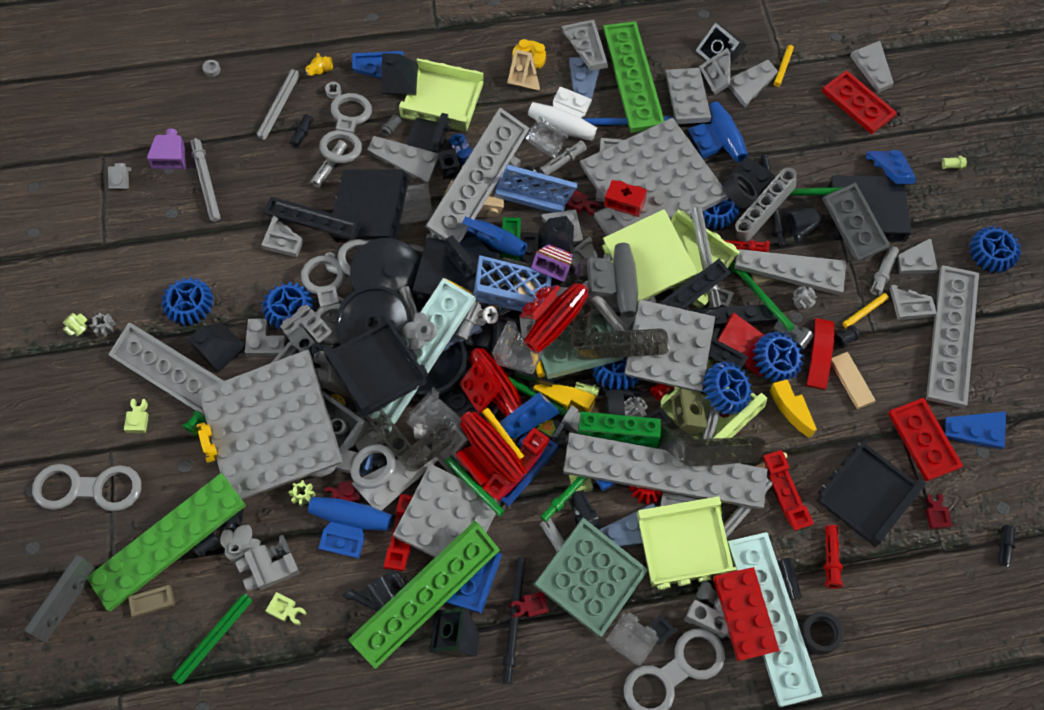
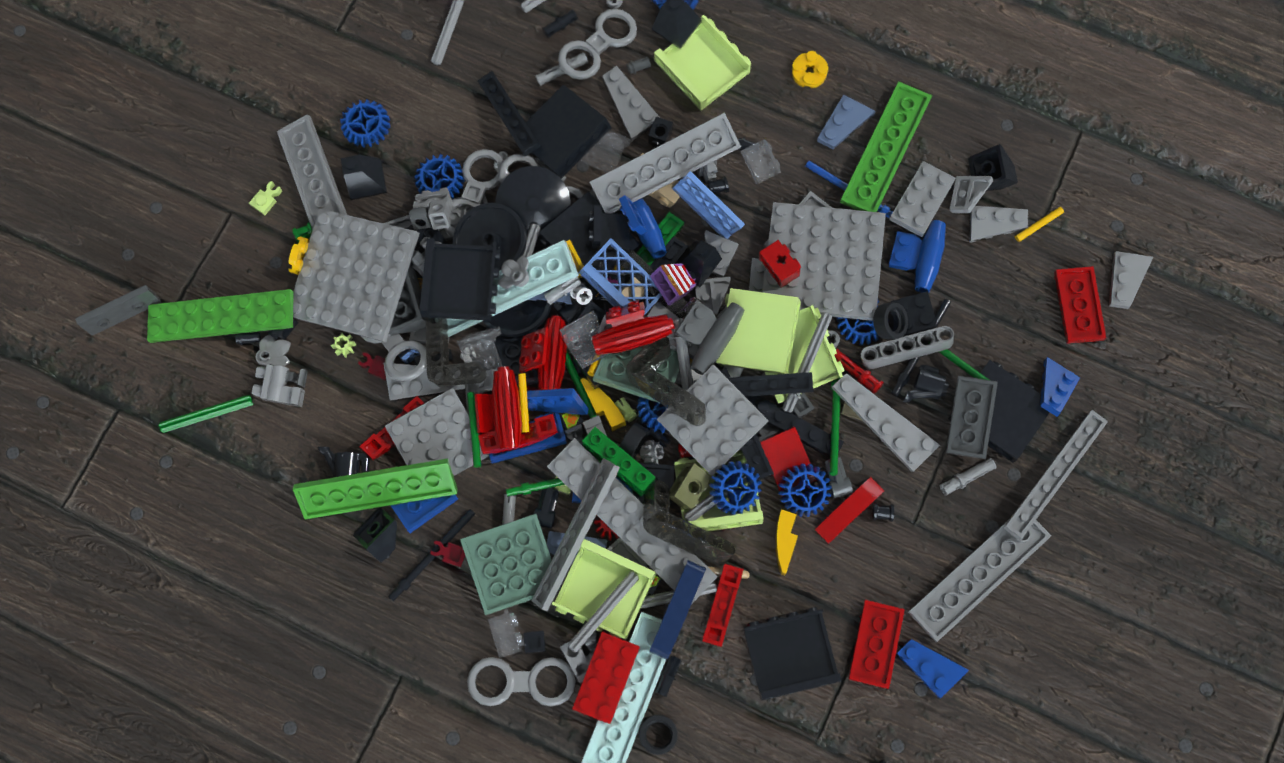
camera: 40 degrees right, 10 degrees up
(75, 324) = (268, 89): yellowish green gear -> none
(86, 487) = (193, 232): light grey bar -> none
(102, 324) = (288, 102): light grey gear -> none
(151, 601) = (182, 355): dark tan tile -> none
(259, 343) = (397, 193): light grey plate -> none
(281, 239) = (475, 115): light grey wing -> none
(283, 607) = (269, 427): yellowish green plate -> none
(346, 526) = (363, 390): blue plate -> none
(429, 134) = (664, 93): black bracket -> none
(461, 147) = (682, 121): blue piece -> none
(523, 71) = (790, 83): tan wing -> none
(566, 114) = (797, 149): white plate -> none
(568, 155) = (763, 189): light grey pin -> none
(580, 202) = (747, 239): dark red plate -> none
(587, 43) = (869, 89): light grey wing -> none
(631, 511) = (575, 534): none -> light grey plate
(702, 559) = (603, 611): none -> light grey axle
(760, 516) = (677, 610): none -> dark blue beam
(804, 297) = (873, 453): light grey gear -> none
(833, 566) = (711, 690): red pin -> none
(852, 380) = (857, 552): tan tile -> none
(864, 311) = (921, 500): yellow bar -> none
(911, 304) = (966, 523): light grey wing -> none
(917, 259) = (1008, 486): light grey wing -> none
(937, 516) = (832, 712): dark red plate -> none
(945, 228) = (1055, 475): none -> light grey plate
(959, 163) = (1121, 420): yellowish green pin -> none
(1005, 254) = (1083, 517): blue gear -> none

